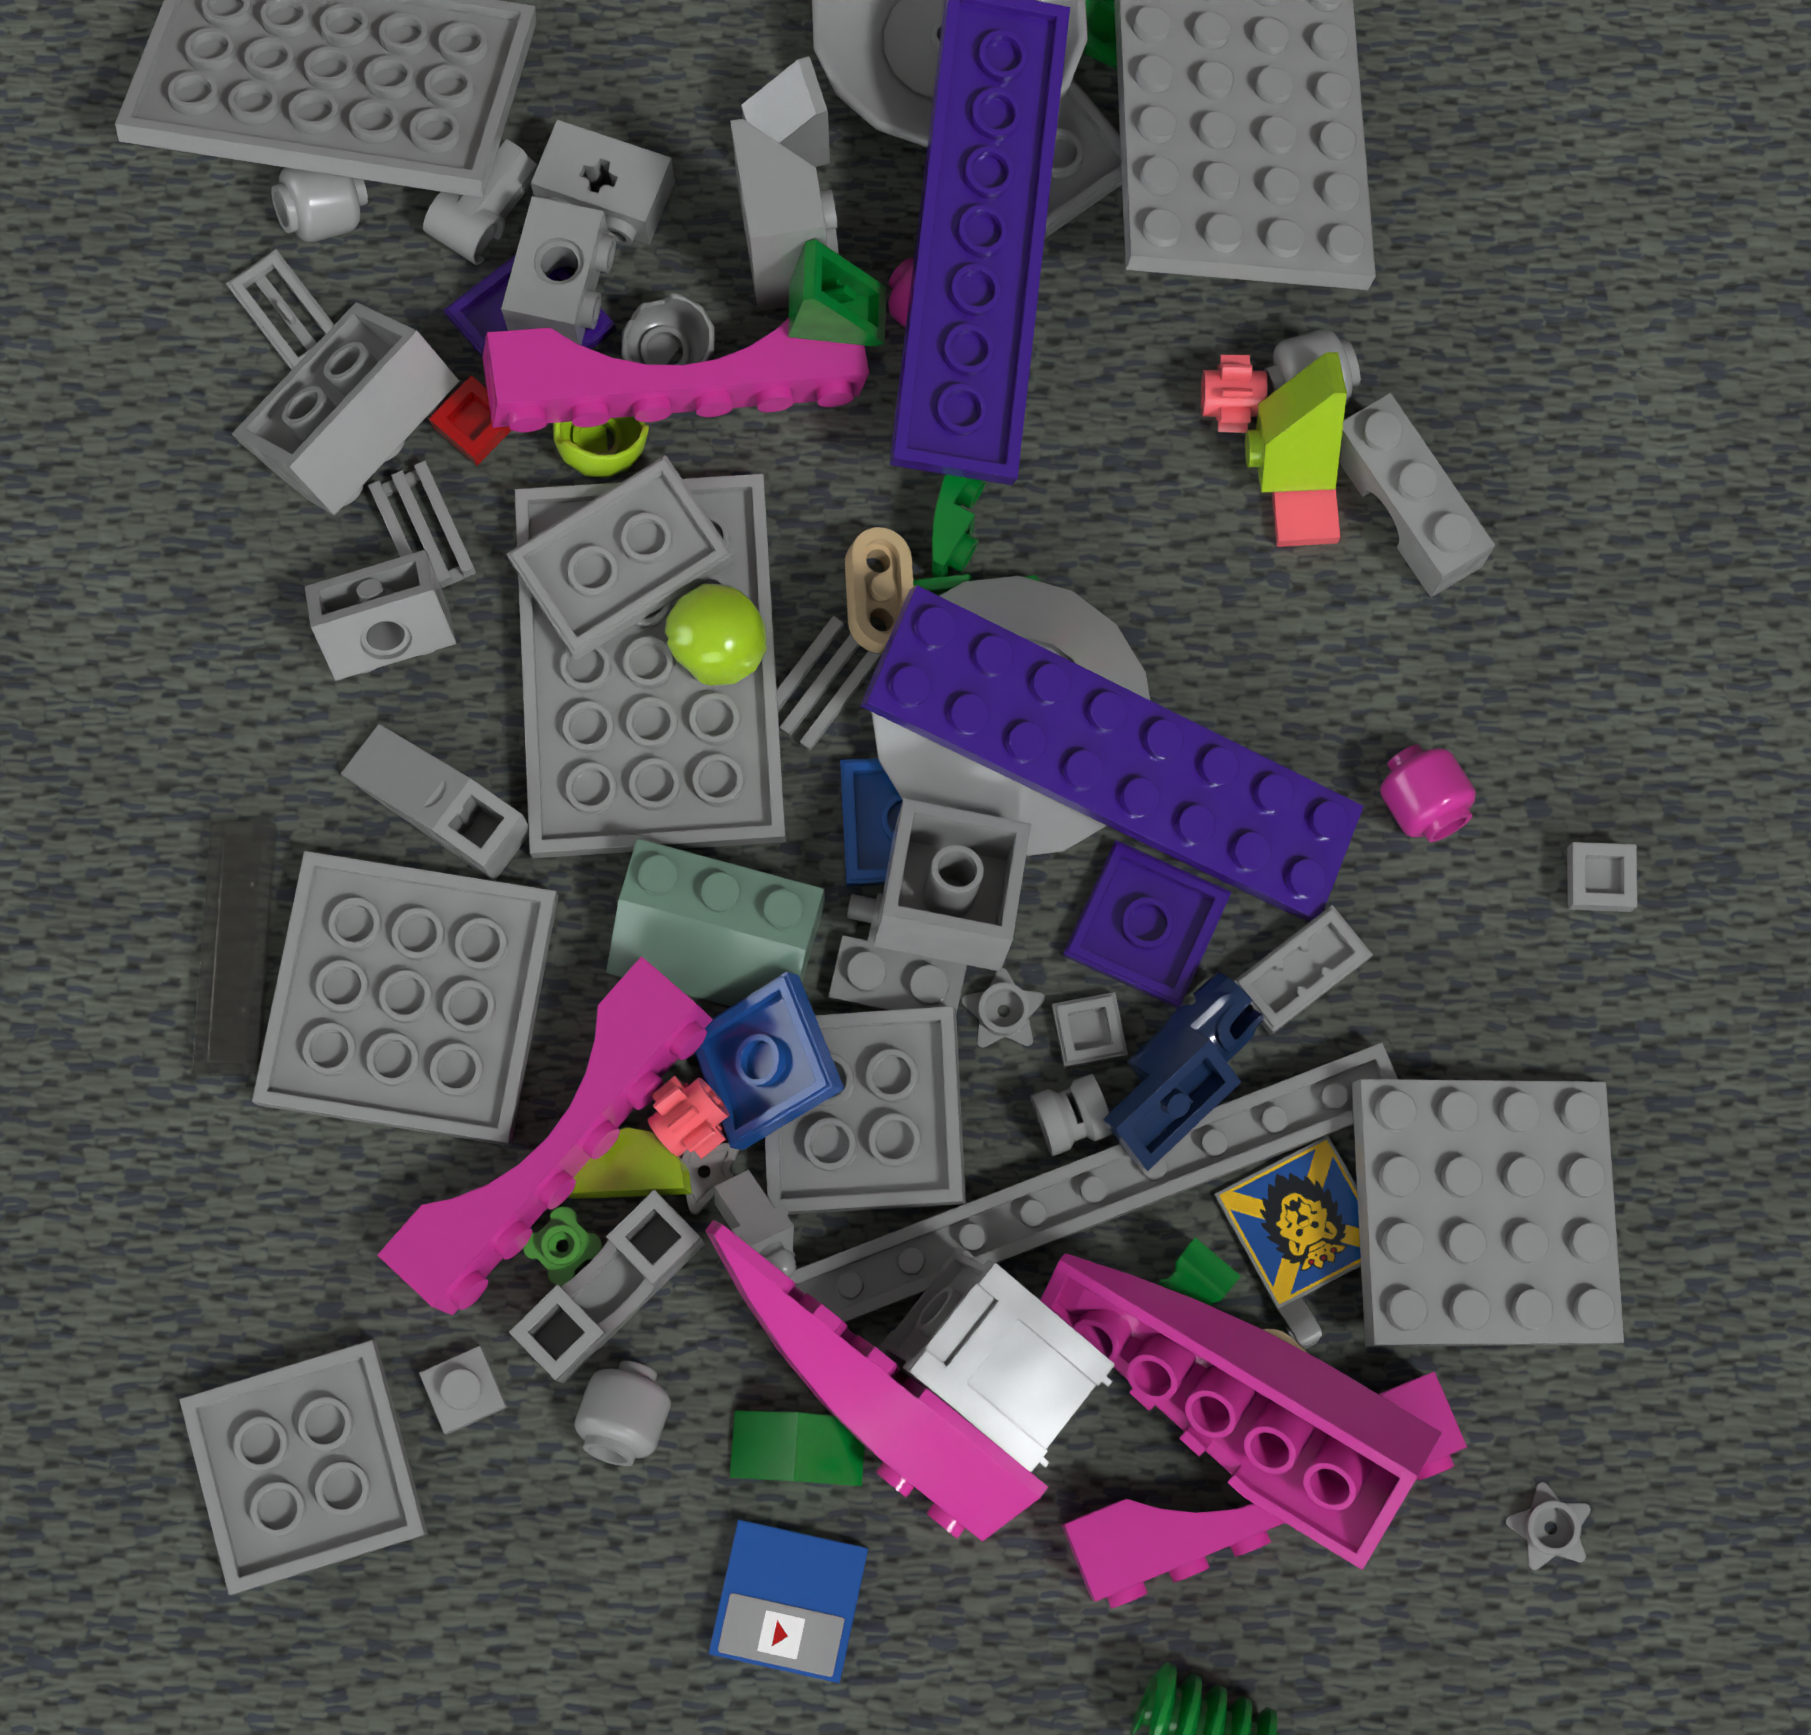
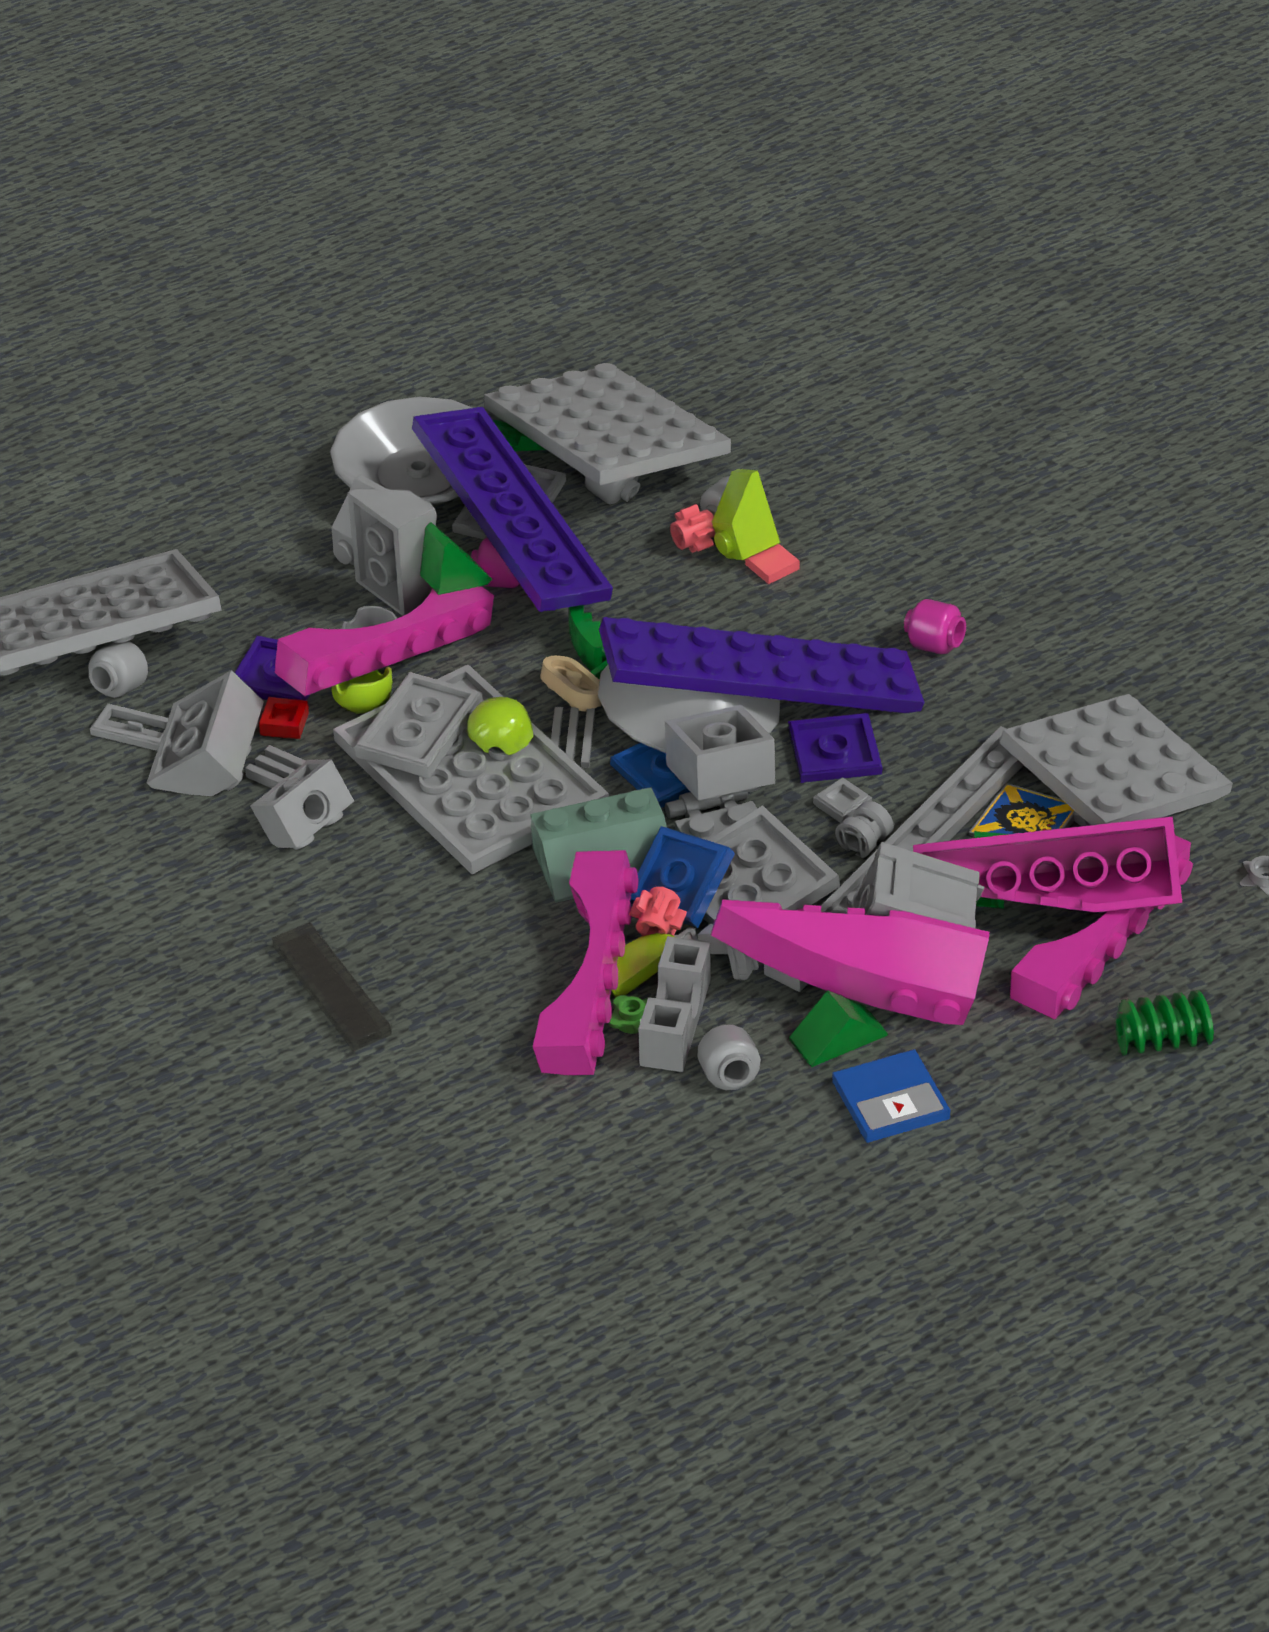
camera: 30 degrees left, 35 degrees down
(303, 1467) = (564, 1171): light grey plate -> none
(406, 998) = (451, 956): light grey plate -> none
(438, 801) = (405, 863): light grey slope -> none
(463, 1390) = (628, 1100): light grey plate -> none
(471, 222) = (213, 637): light grey piece -> none
(554, 238) = (276, 617): light grey brick -> none
(585, 160) = (276, 596): light grey brick -> none
(1003, 992) = (792, 807): light grey plate -> none
(1184, 1070) = (908, 777): dark blue plate -> none
(1303, 969) = (932, 724): light grey plate -> none
(1433, 521) = (850, 529): light grey arch -> none
(1602, 876) = (1053, 622): light grey plate -> none

